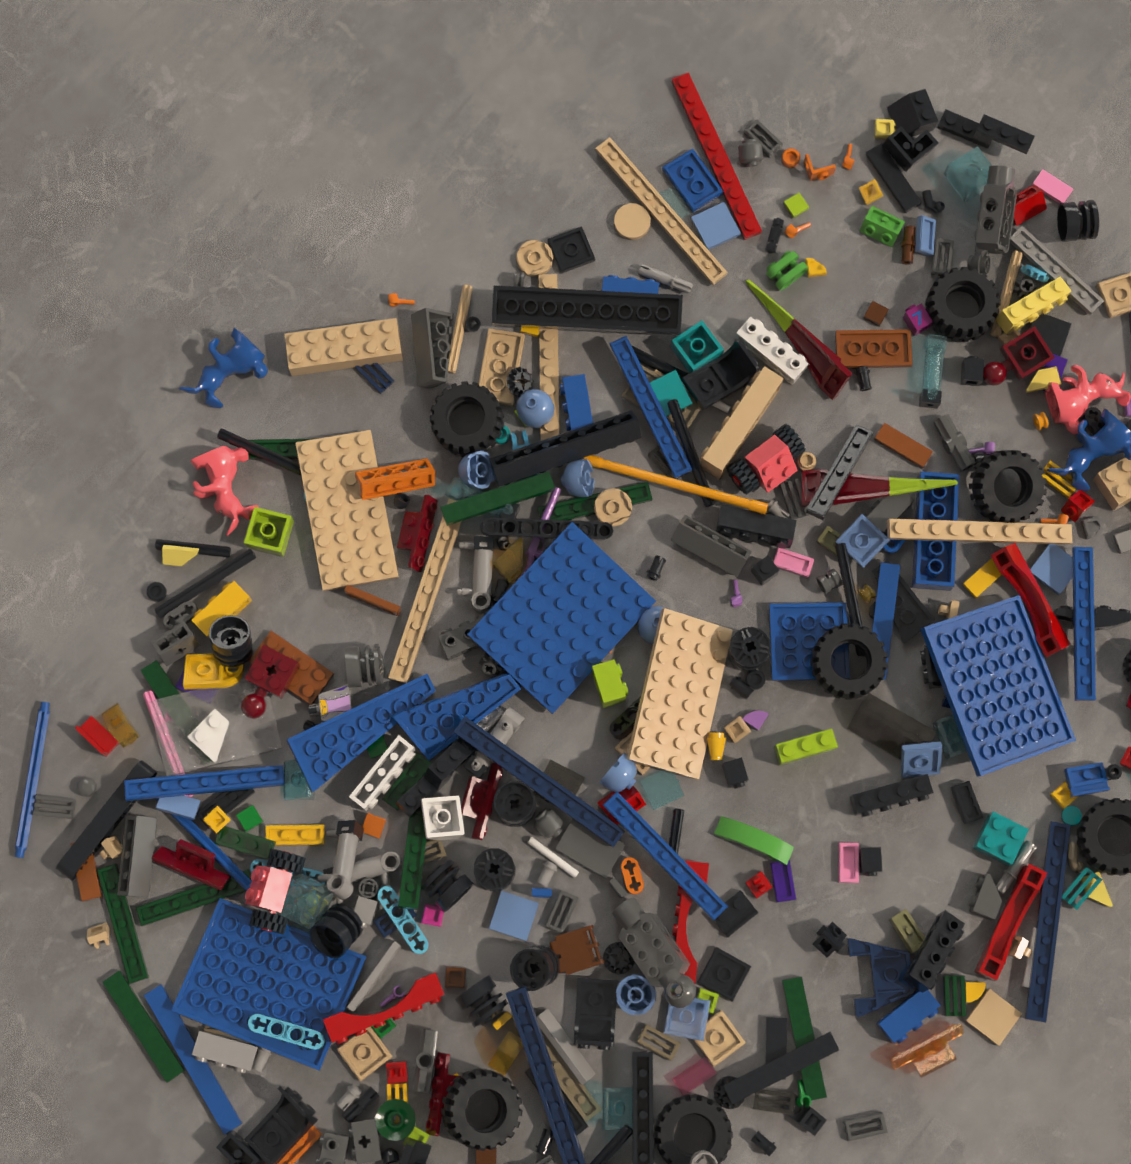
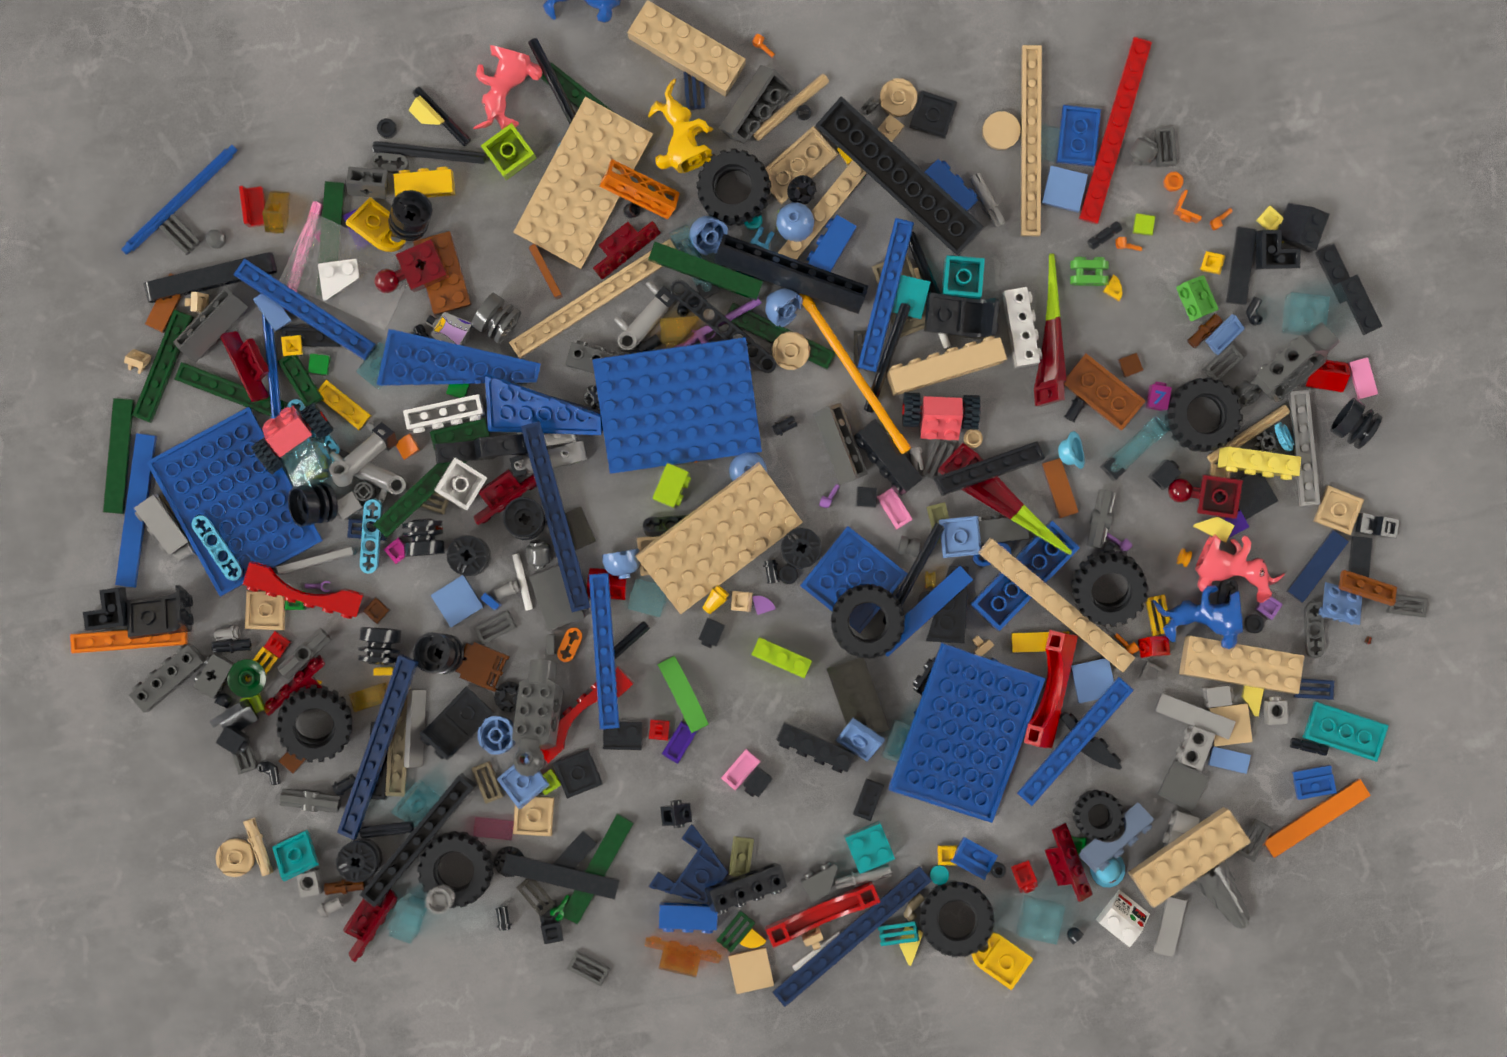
camera: 40 degrees right, 10 degrees up
(403, 422) = (683, 149): none -> yellow animal
(887, 410) = (1072, 451): none -> medium azure hat

